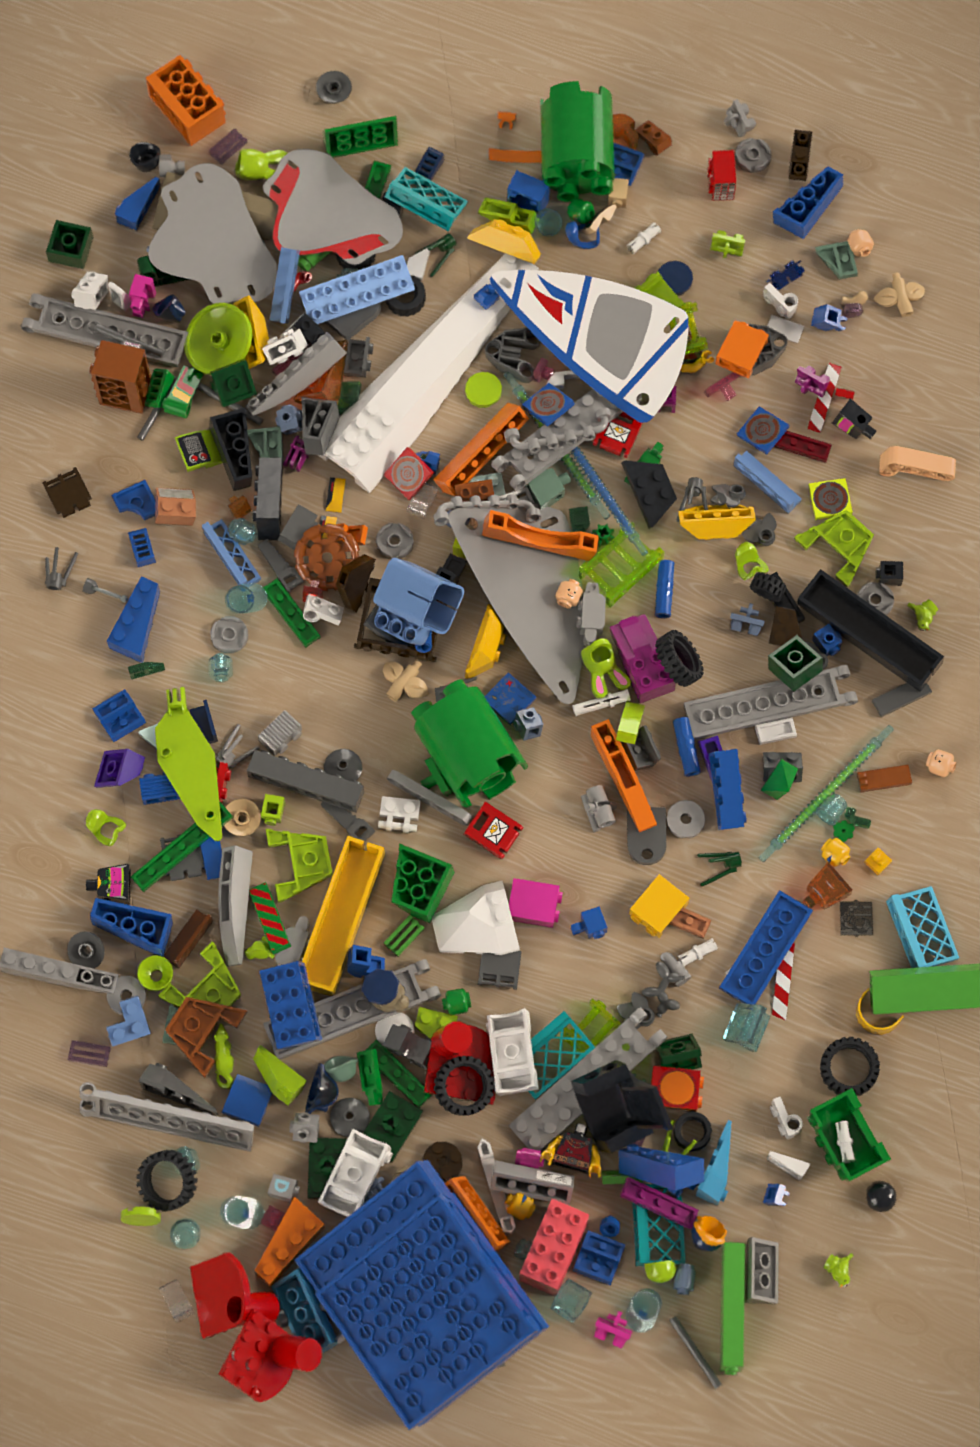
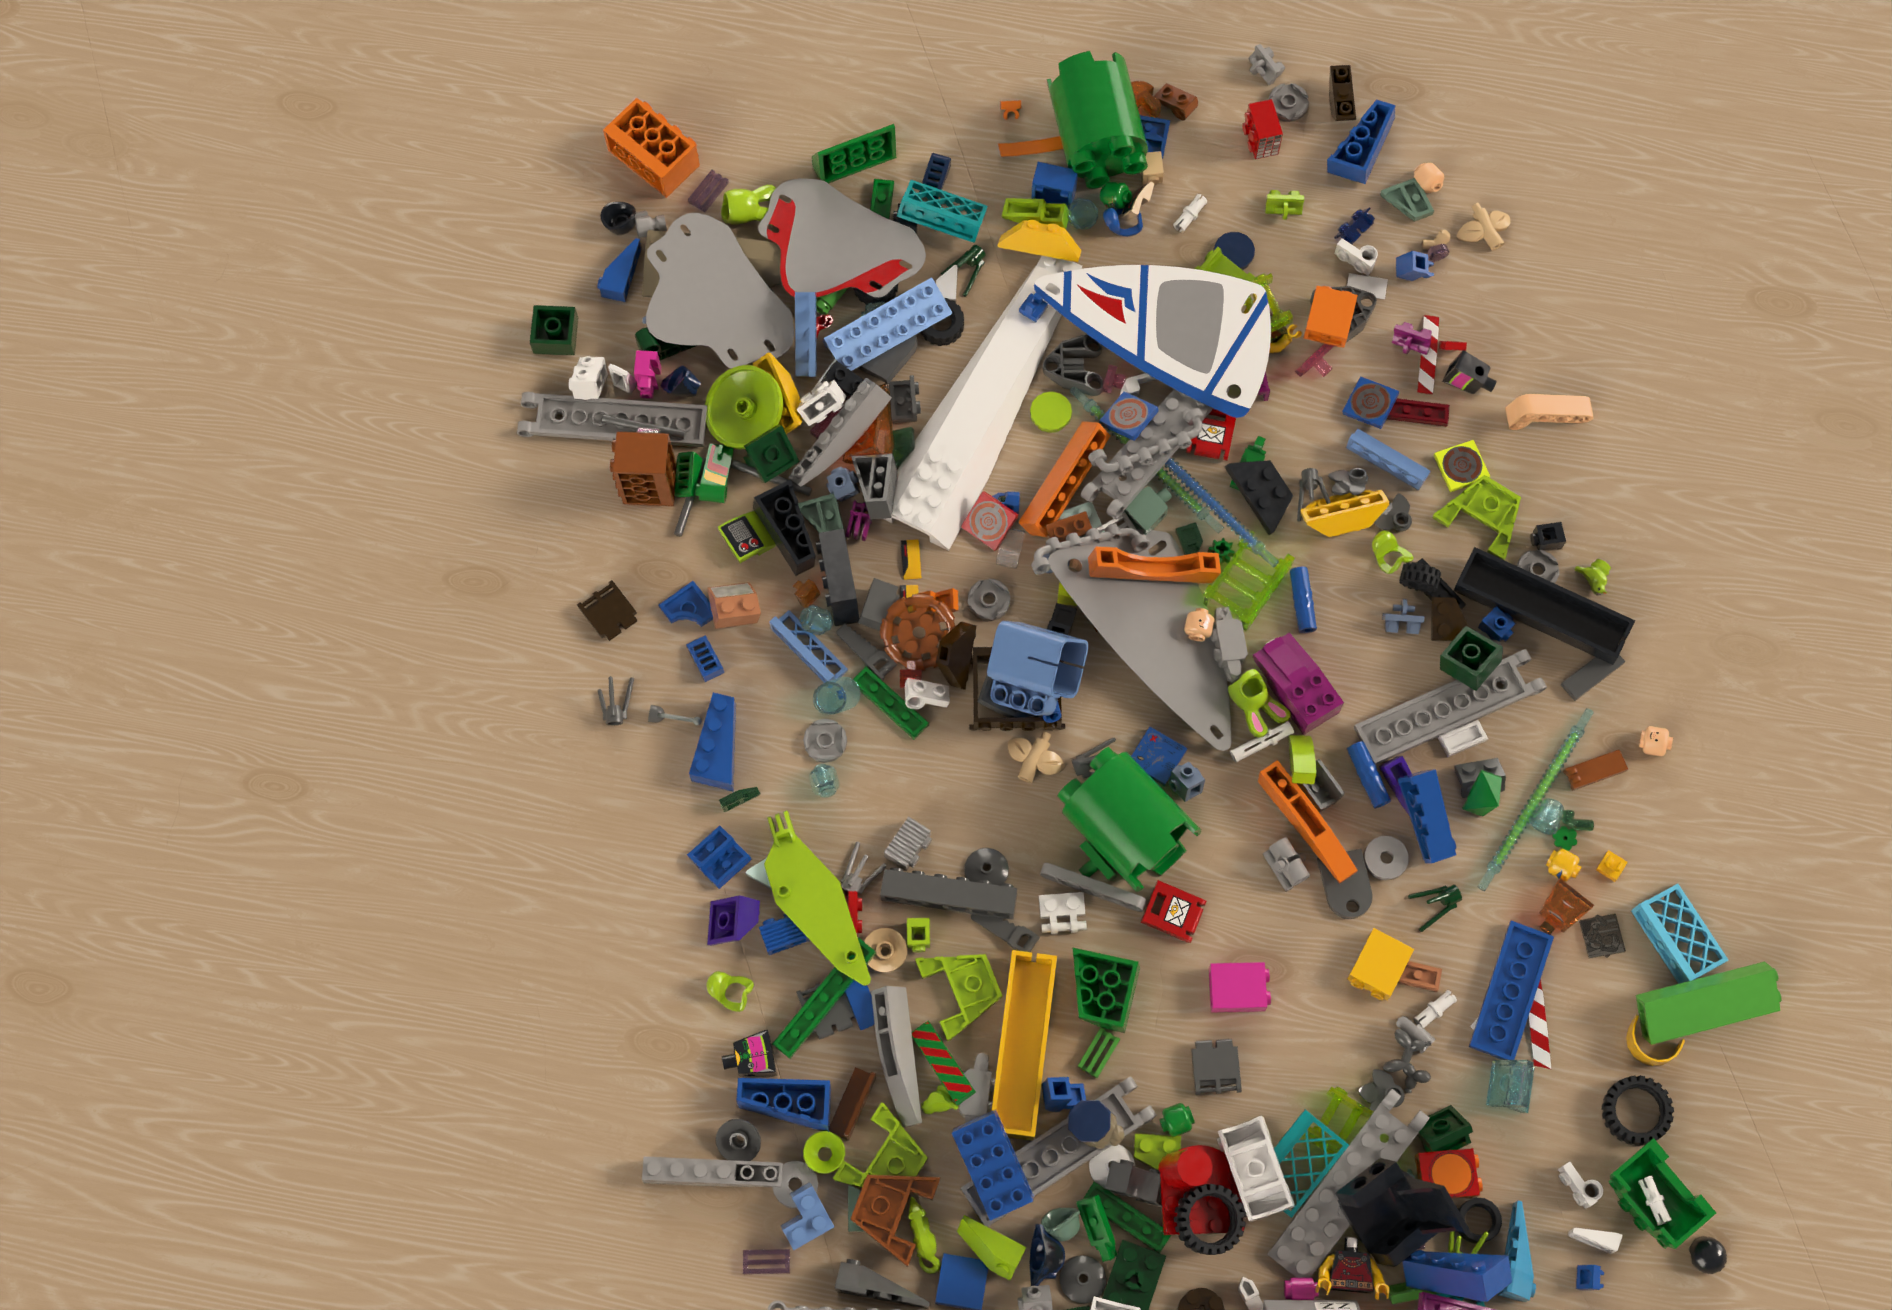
camera: 10 degrees left, 0 degrees up
(204, 721) = (818, 844): dark blue panel -> none
(333, 80) = (812, 98): dark grey dish -> none
(477, 923) = (1180, 1022): white wedge -> none
(487, 644) = (1119, 698): yellow wedge -> none
(592, 923) = (1310, 998): blue brick -> none
(674, 644) = (1341, 676): black tyre -> none

